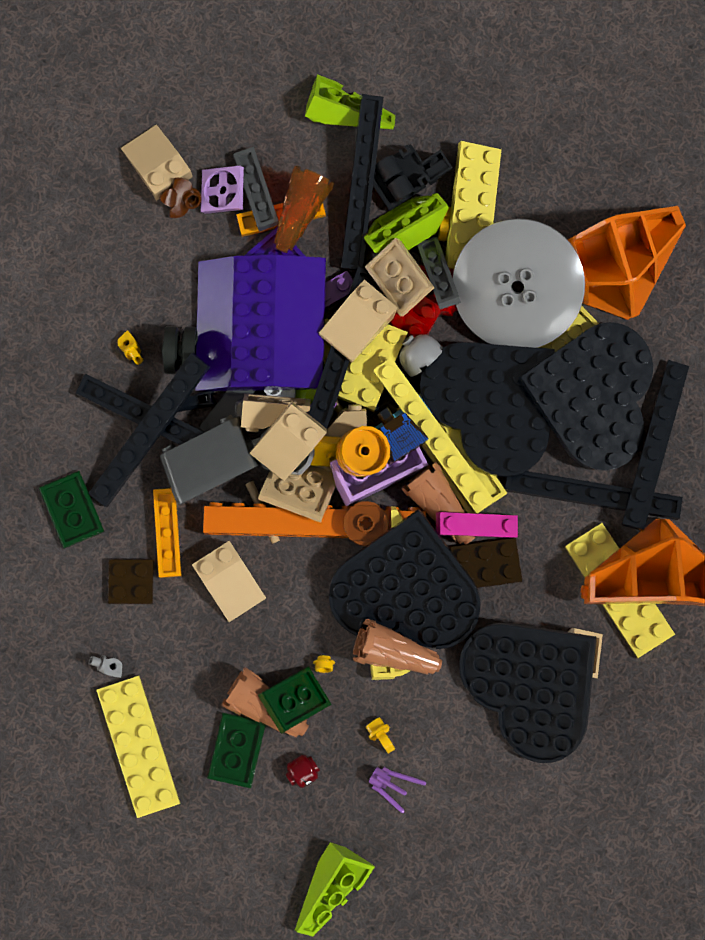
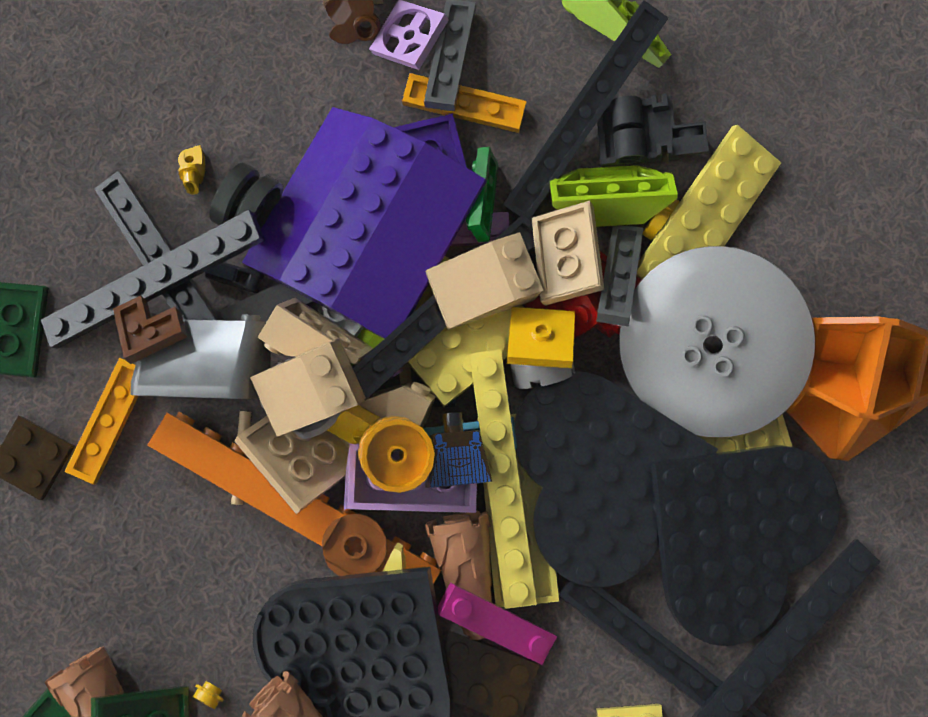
camera: 30 degrees right, 0 degrees up
(168, 464) = (143, 334): none -> reddish brown plate
(229, 581) = (148, 523): tan slope -> none
(301, 204) = (495, 98): clear orange cone -> none
(332, 281) = (480, 216): none -> green plate
(411, 337) = (541, 337): none -> yellow plate

